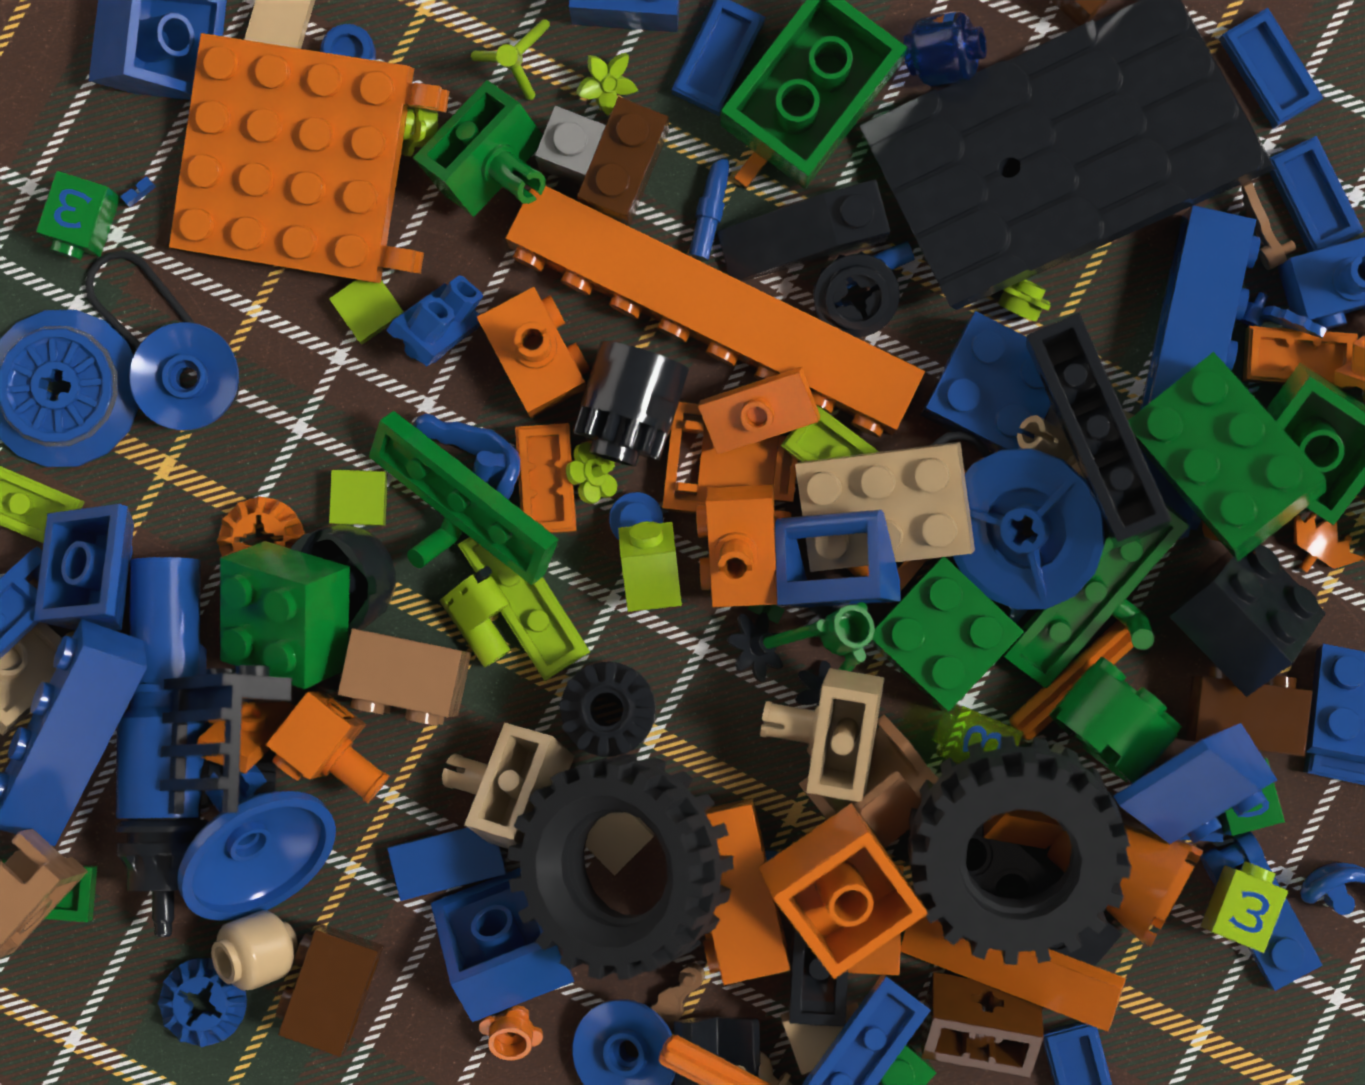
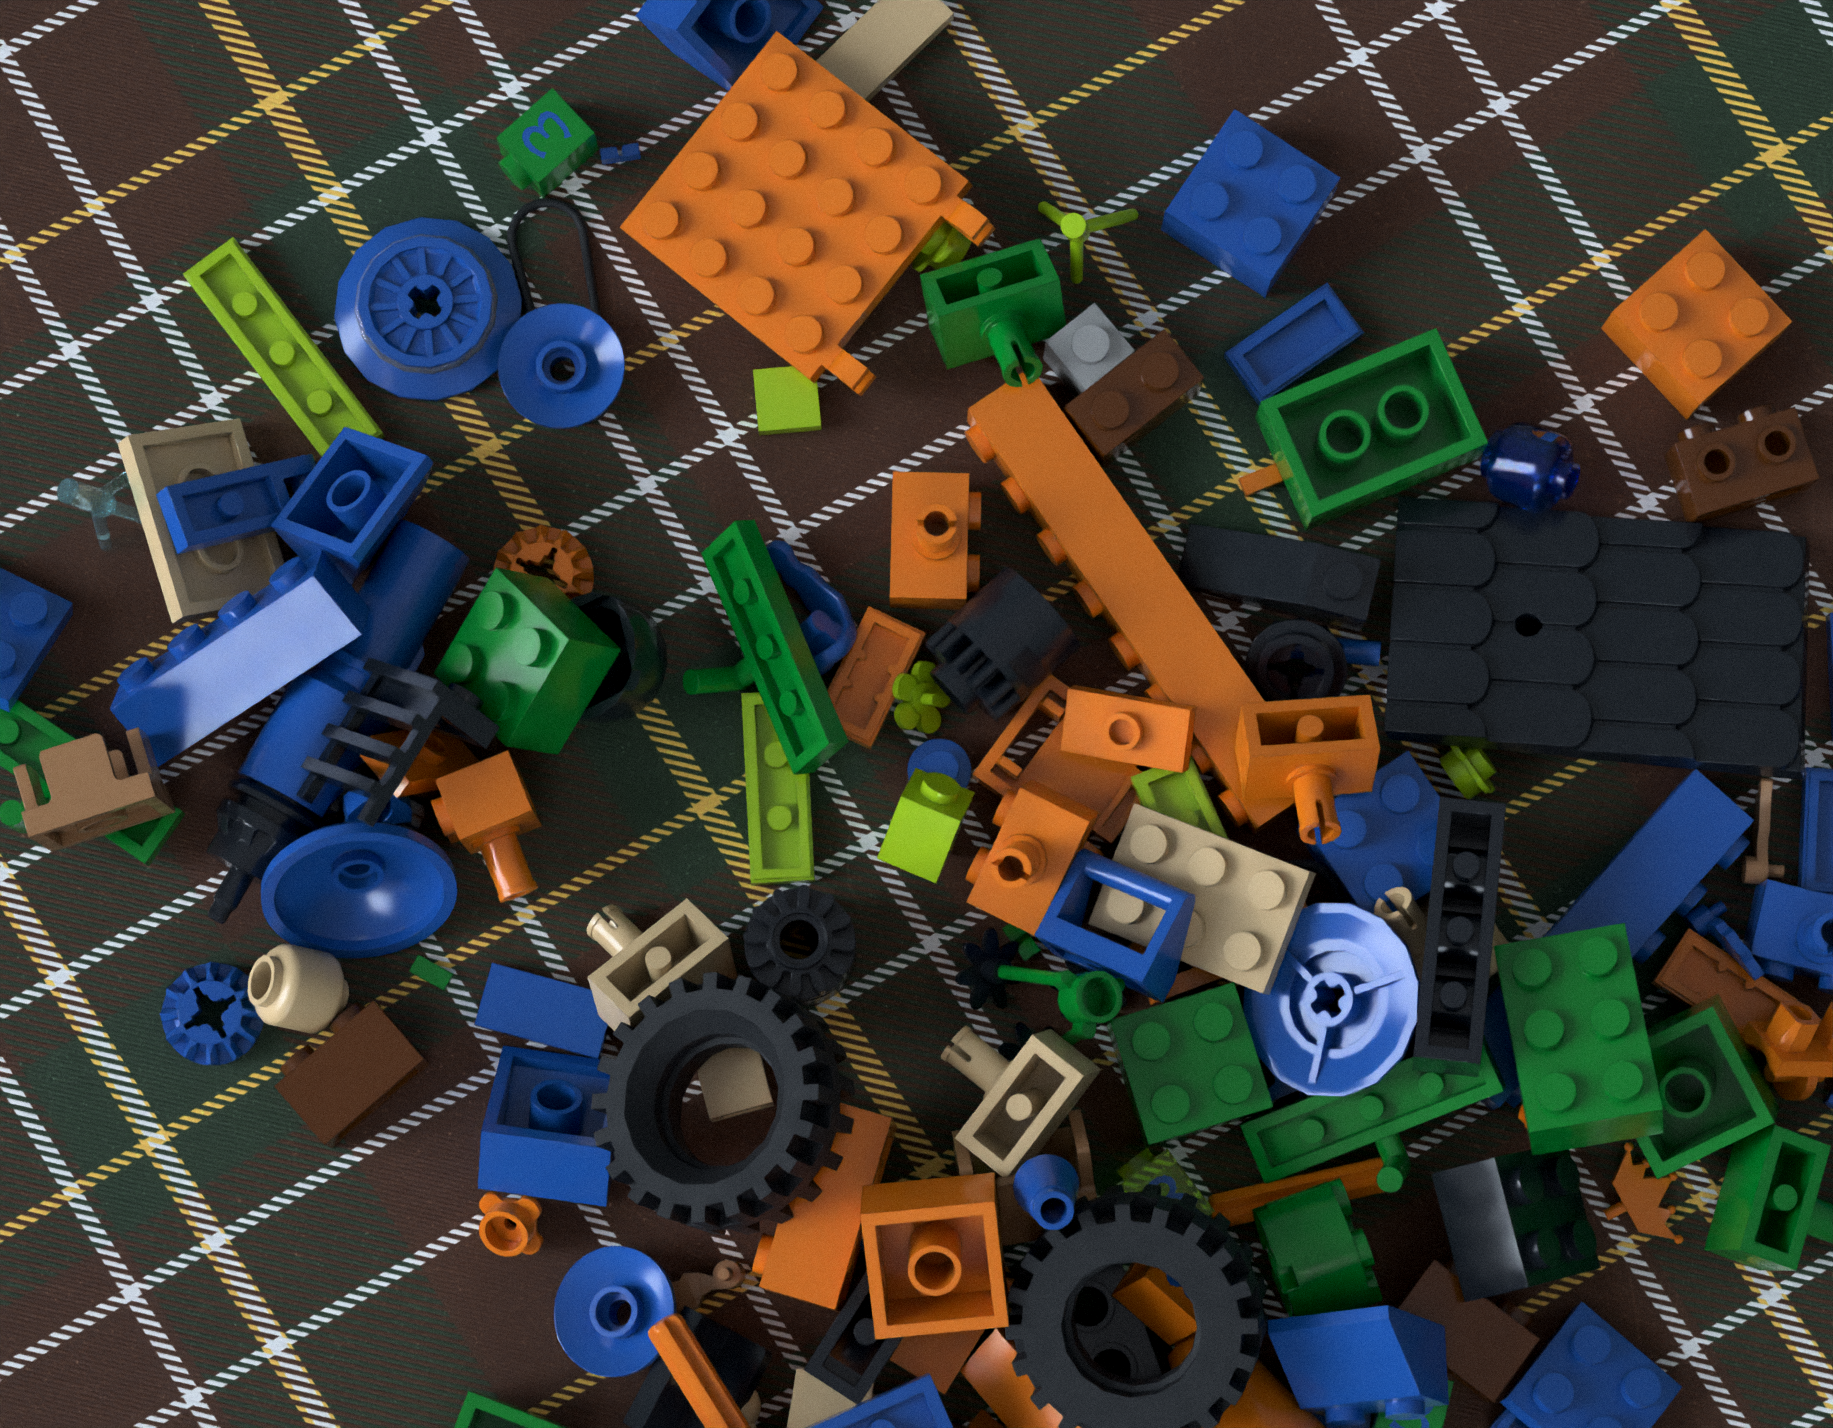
camera: 25 degrees right, 5 degrees down
(347, 879) = (431, 972): none -> green piece
(349, 41) = (922, 122): blue tile -> none
(358, 498) = (667, 588): lime tile -> none
(404, 674) = (614, 792): medium nougat brick -> none
(438, 321) = (851, 454): blue hips -> none
(471, 610) = (717, 766): lime piece -> none
(606, 81) = (1162, 307): lime plant -> none
(709, 210) = (1194, 498): blue piece -> none
(901, 797) = (1047, 1178): none -> blue cone
(906, 356) = (1309, 754): none -> orange brick

